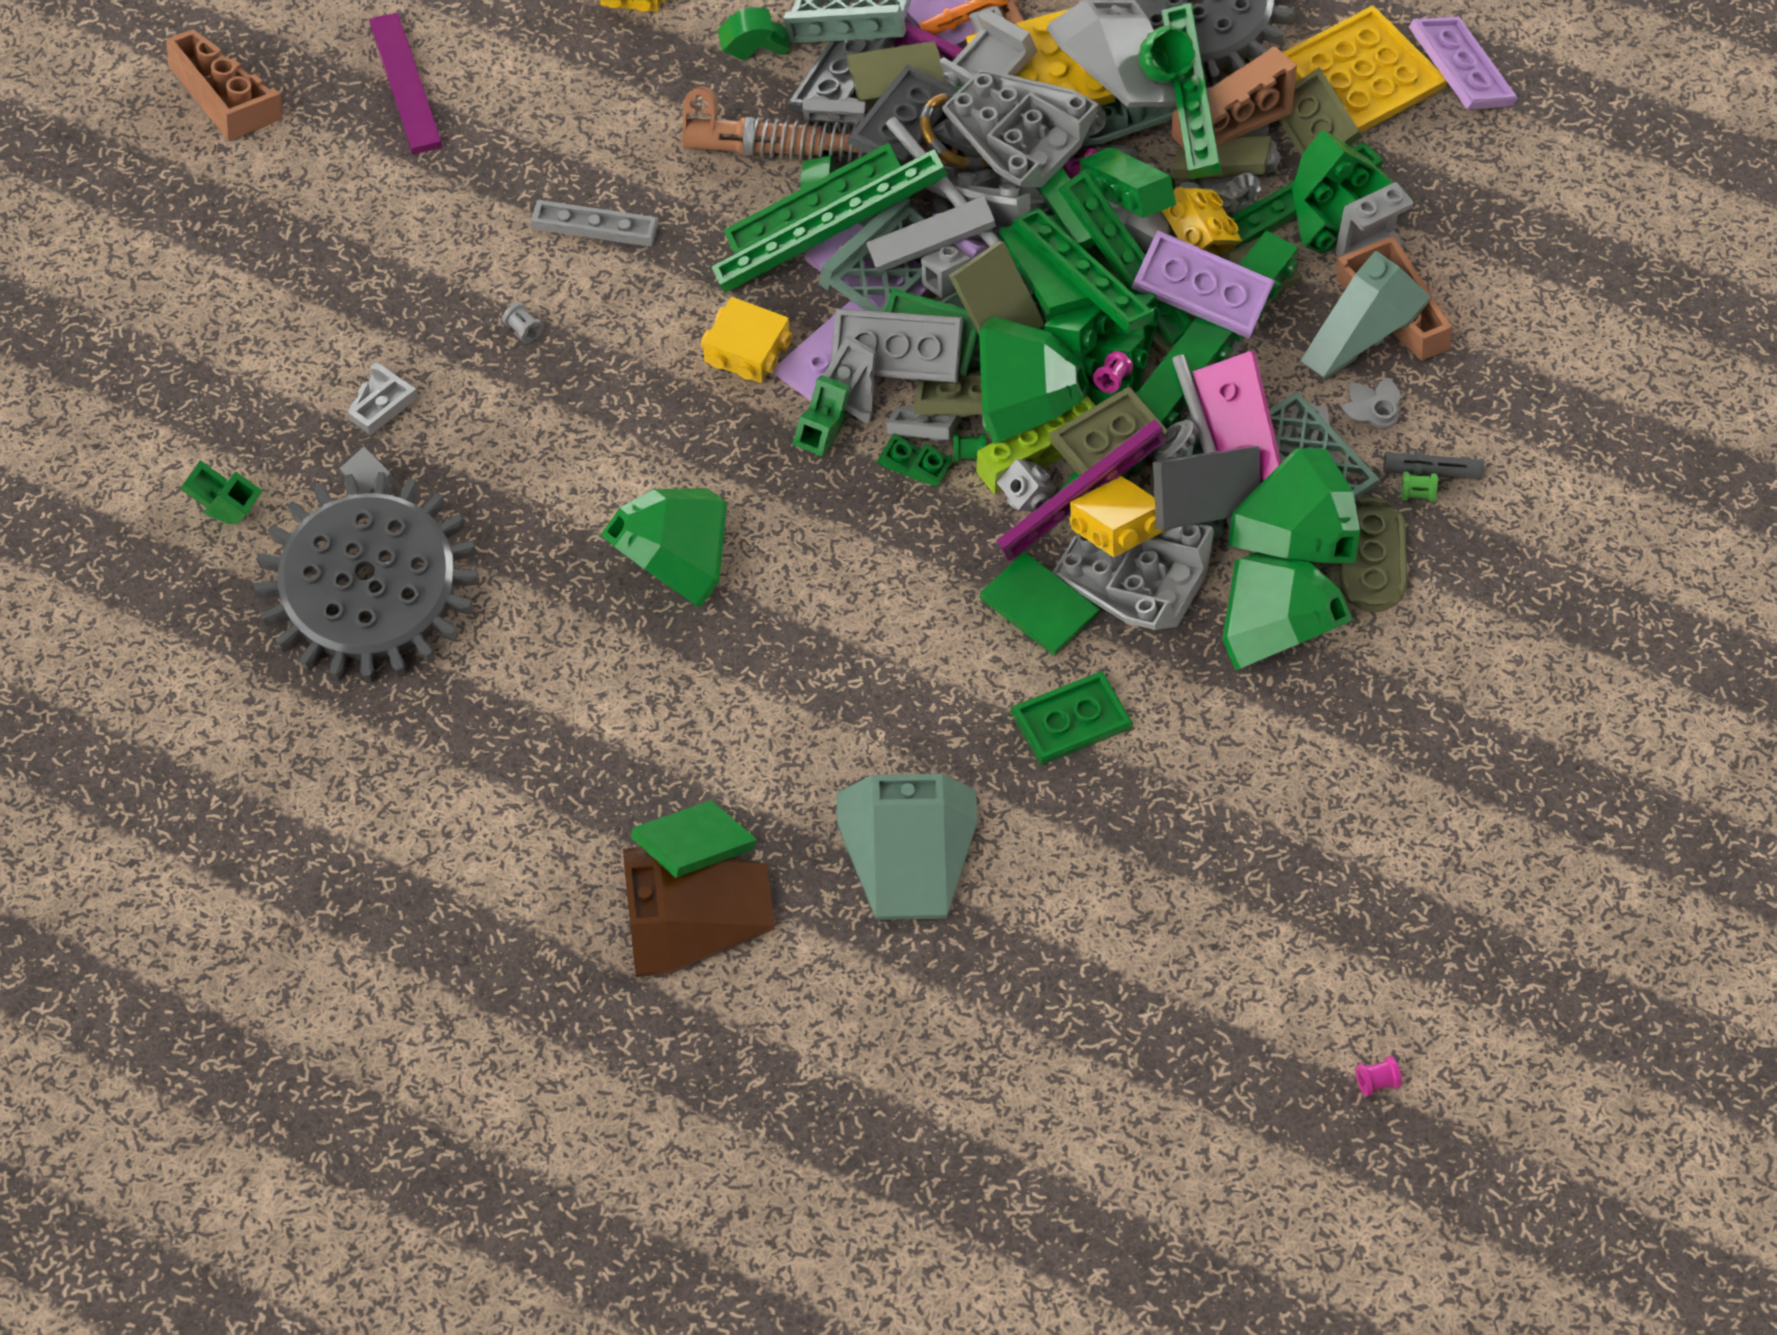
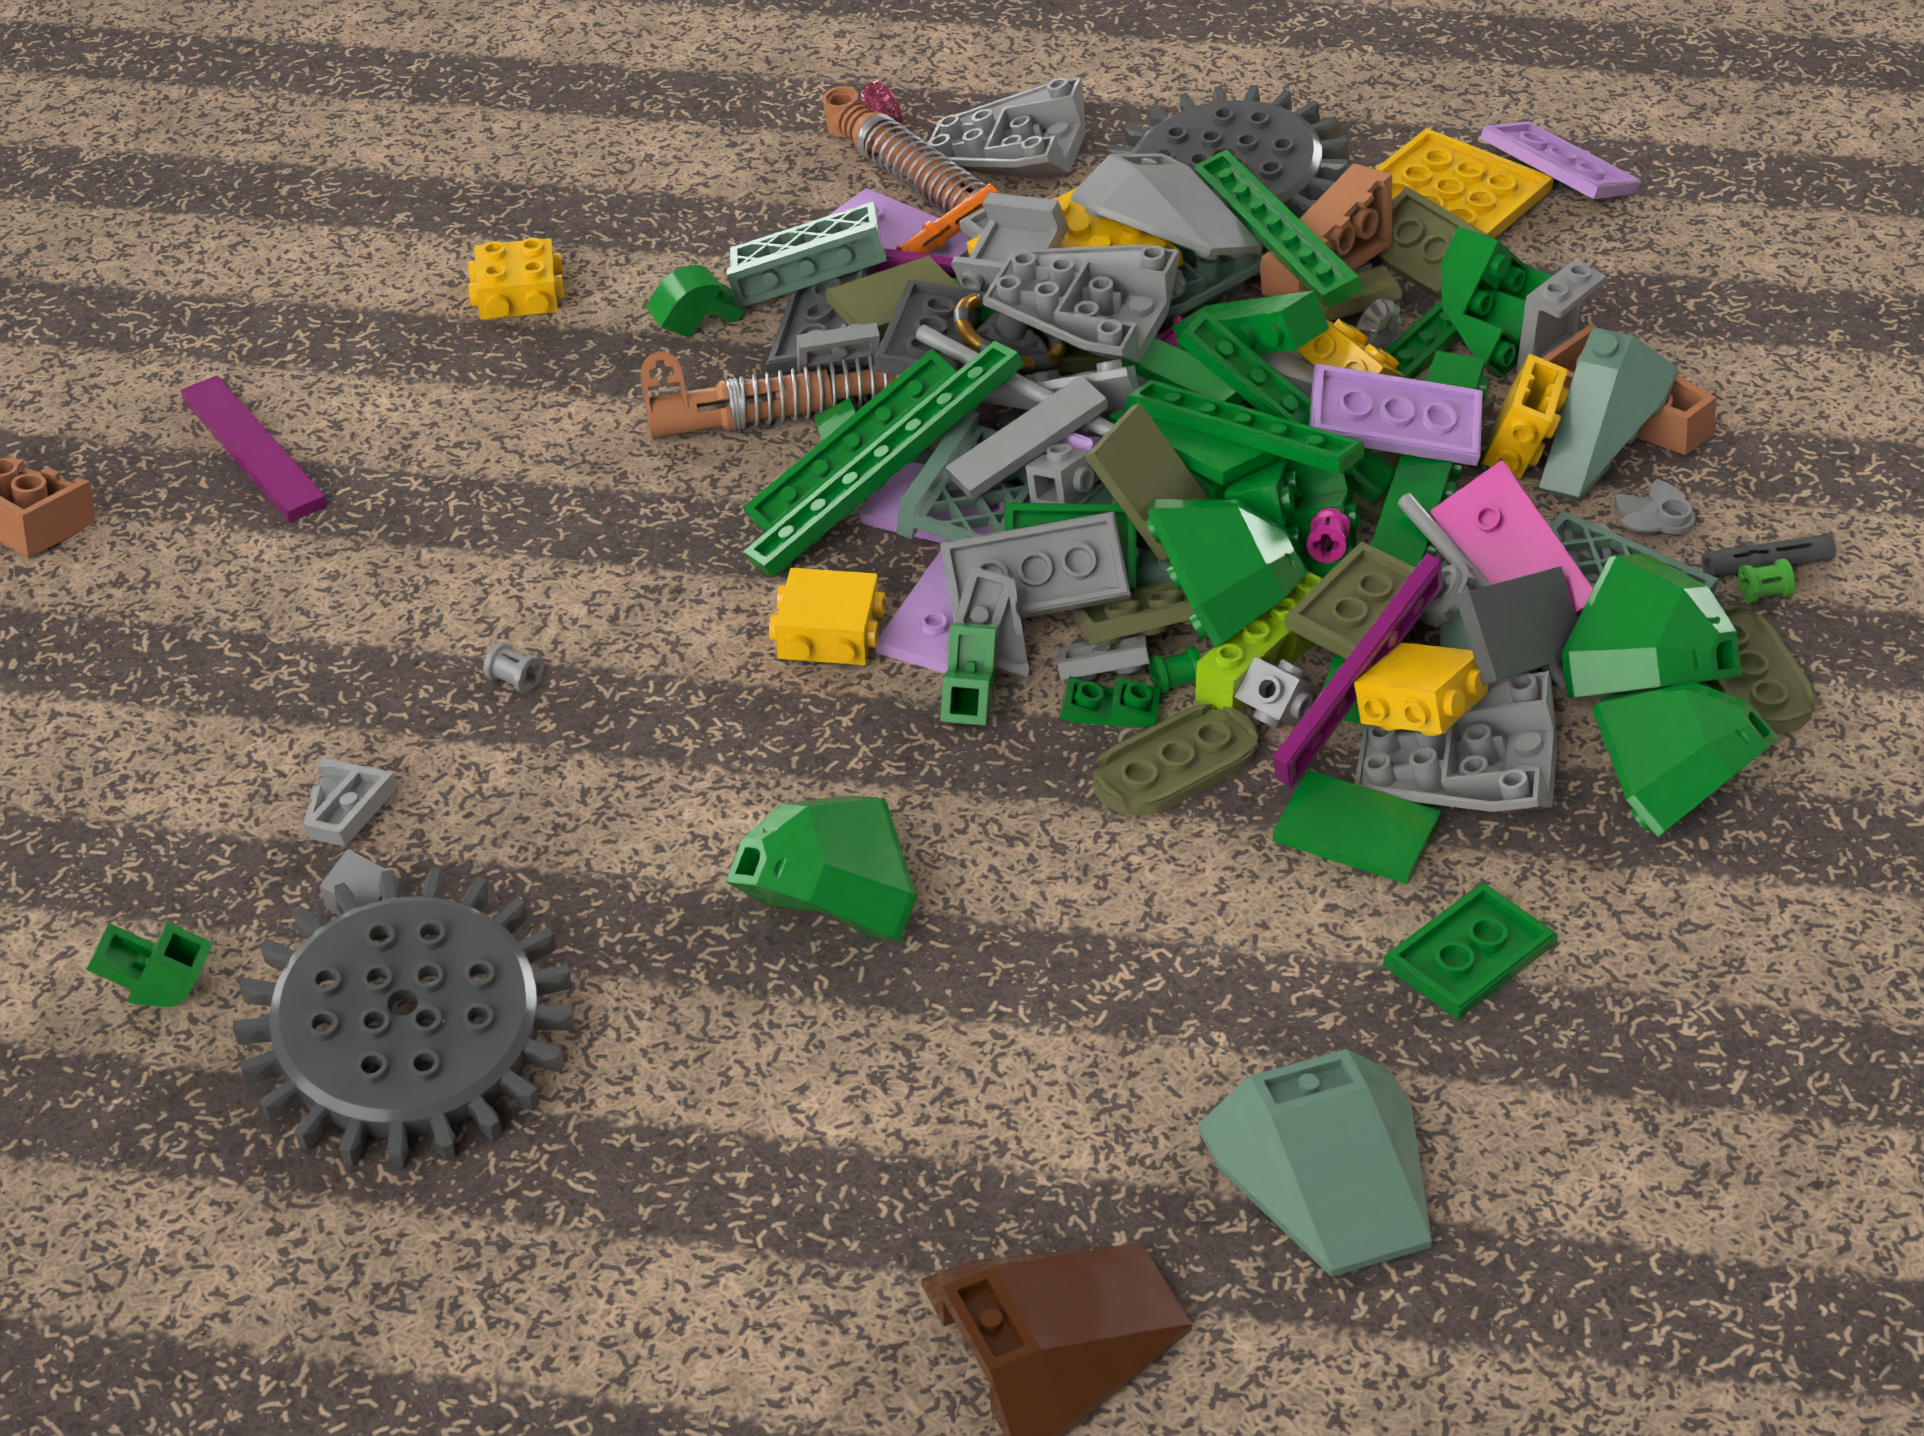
camera: 15 degrees left, 15 degrees down
(594, 223) = (564, 541): light grey tile -> none
(693, 838) = (1025, 1231): green tile -> none
(940, 517) = (1175, 759): none -> olive tile
(1166, 54) = (1234, 189): green hair -> none
(1308, 305) = (1527, 416): none -> yellow brick

